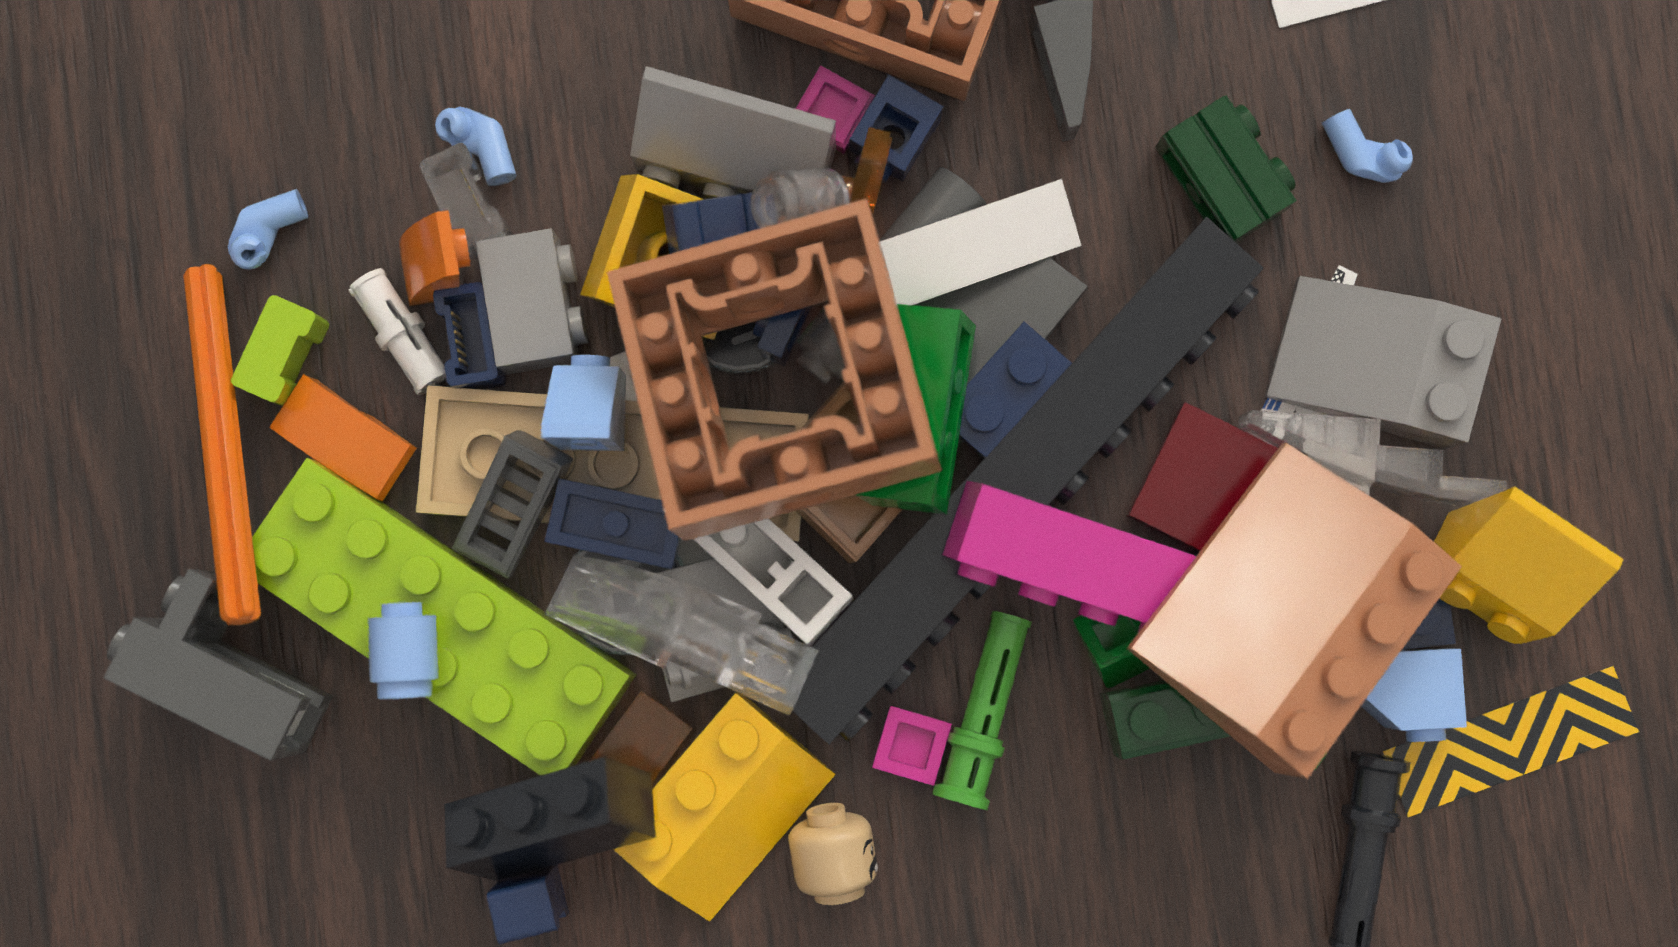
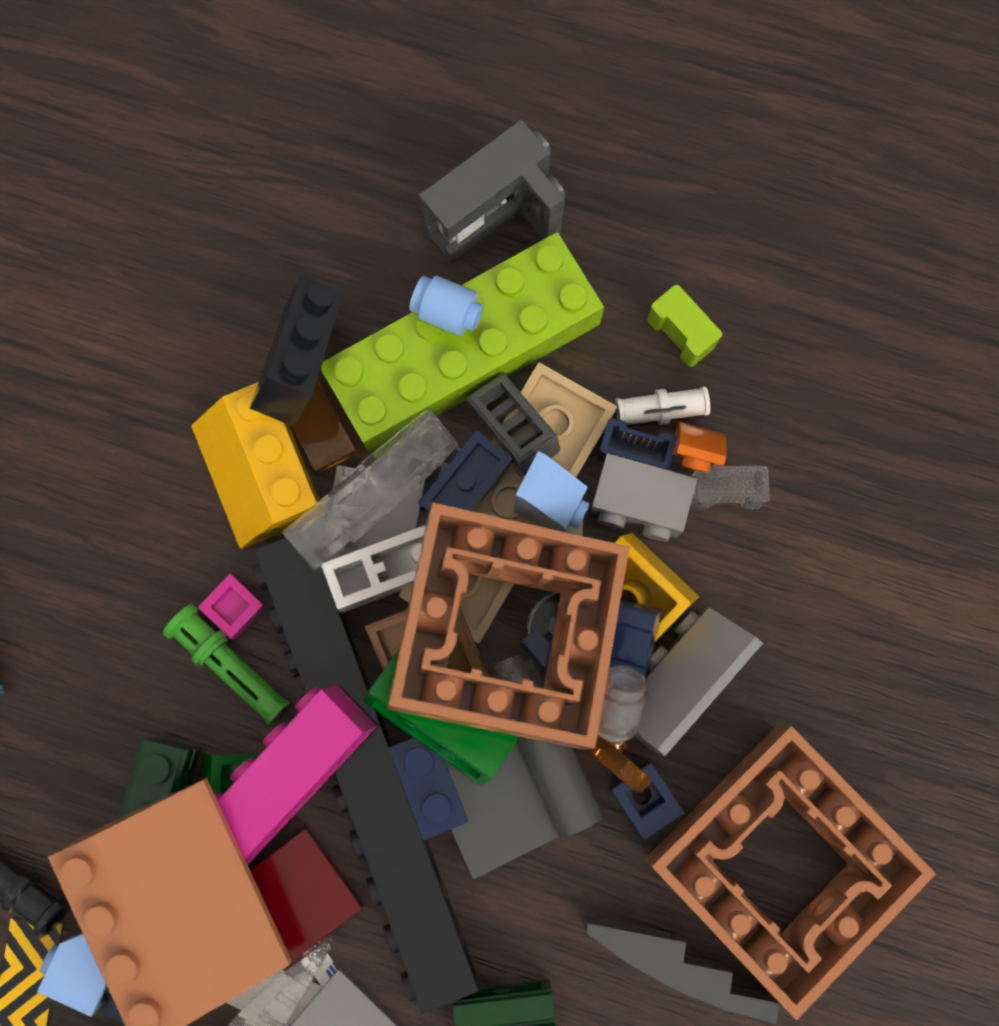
camera: 115 degrees right, 5 degrees down
(221, 447) = (637, 259): orange axle -> none
(259, 225) = (773, 351): light blue arm -> none
(343, 437) = (608, 339): orange slope -> none
(482, 137) = (769, 518): light blue arm -> none
(527, 904) = (255, 314): dark blue piece -> none
(833, 854) = (187, 520): tan head -> none
(837, 100) = (682, 765): dark pink tile -> none
(980, 243) = (536, 818): white sticker -> none

